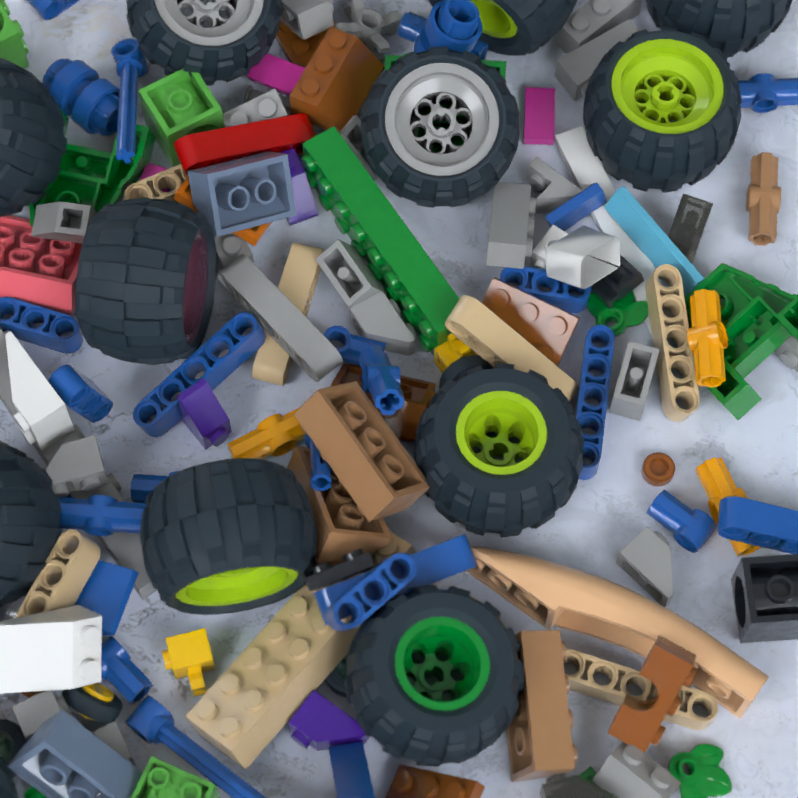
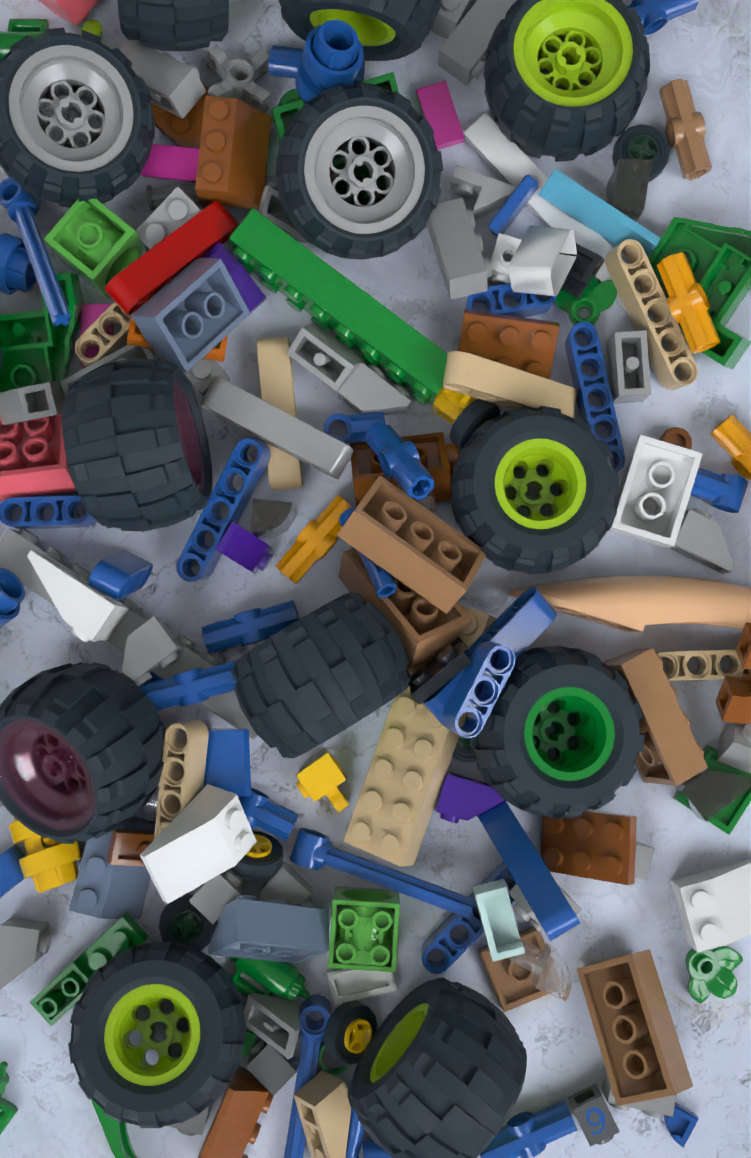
camera: 15 degrees left, 20 degrees up
(243, 396) = (271, 517): none -> clear smoke brick
(616, 499) = (655, 492): none -> white slope
(724, 197) = (645, 142): none -> black wheel

